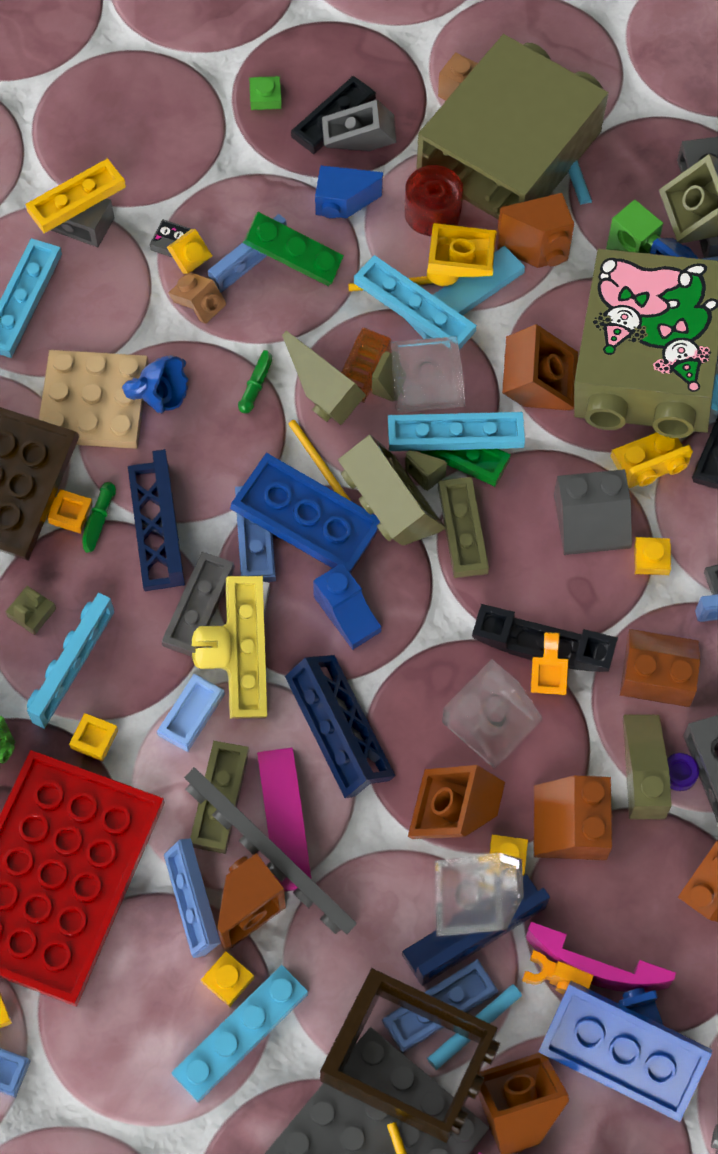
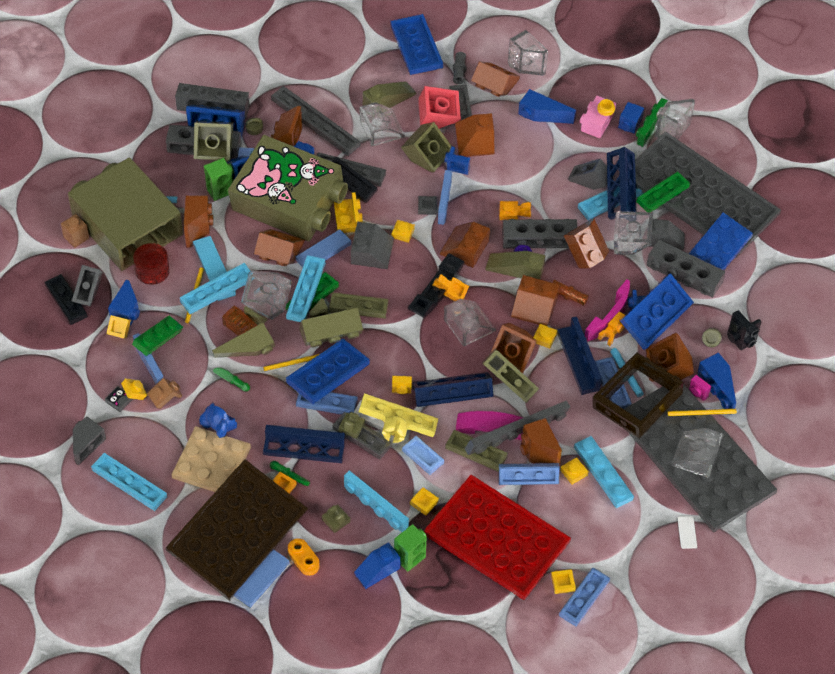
camera: 75 degrees left, 10 degrees down
(75, 195) = (80, 429): yellow plate -> none
(204, 579) = (351, 425): none -> olive tile
(265, 93) = (35, 329): bright green plate -> none
(299, 195) = (118, 326): none -> yellow plate
(315, 636) = (401, 384): none -> yellow plate
(345, 606) = (383, 367): blue arch -> none
(392, 809) = (510, 375): none -> olive slope
(460, 253) = (194, 259): yellow slope -> none
(477, 893) = (567, 346): clear slope -> none
(563, 442) = (326, 248): none -> medium blue tile
(617, 876) = (571, 293): none -> clear orange pin

